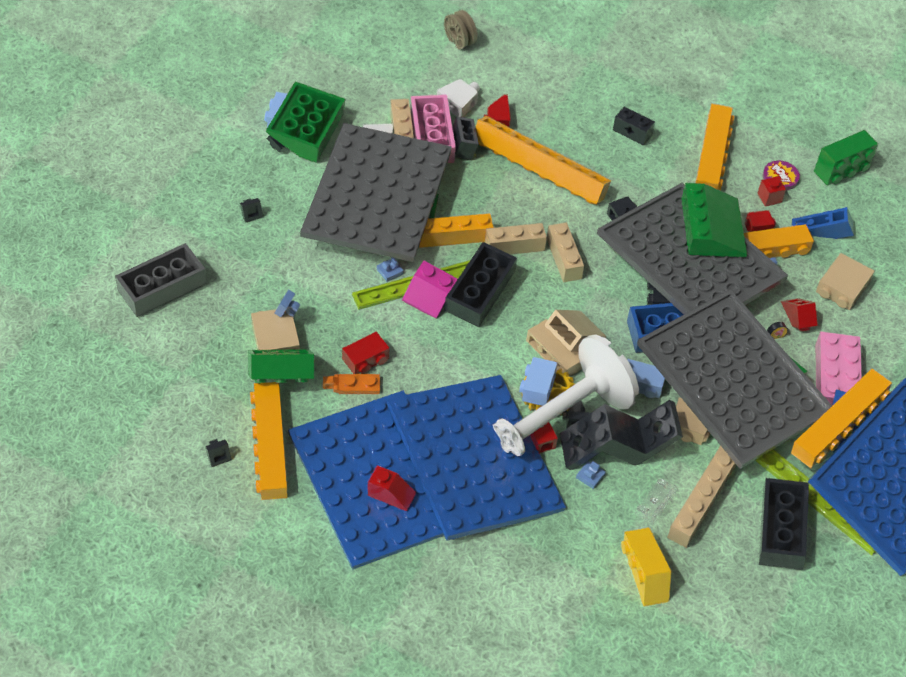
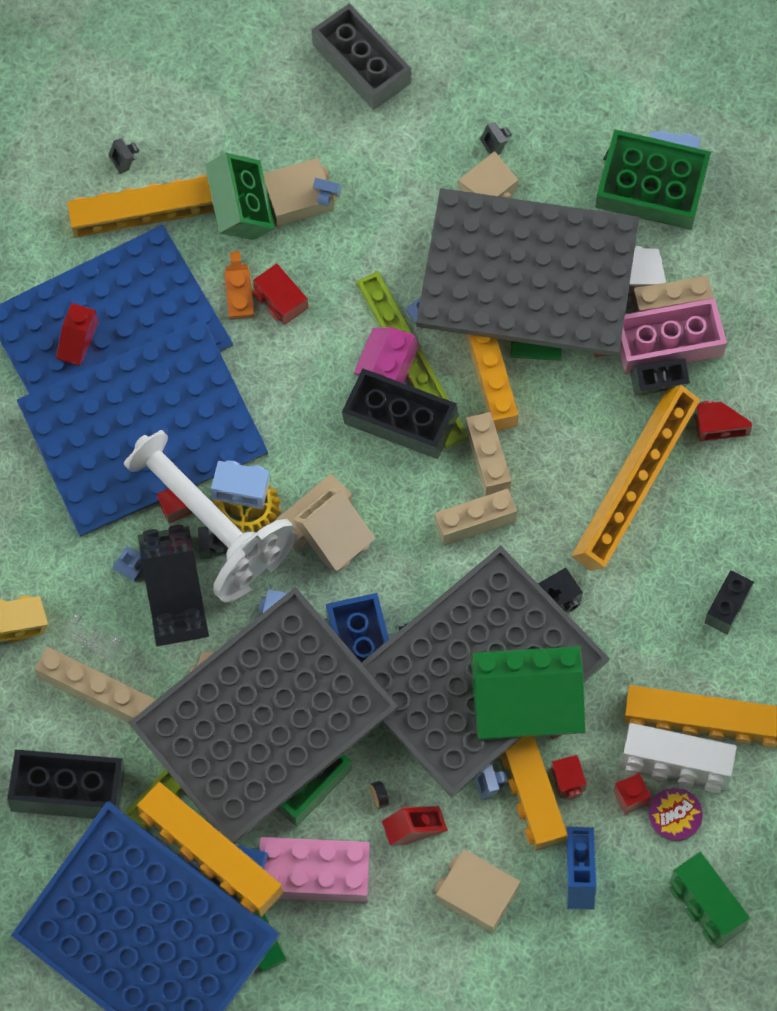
camera: 90 degrees right, 15 degrees up
(287, 215) = (490, 178): none -> tan torso
(460, 96) = (744, 369): white torso -> none
(749, 161) = (678, 758): none -> white brick

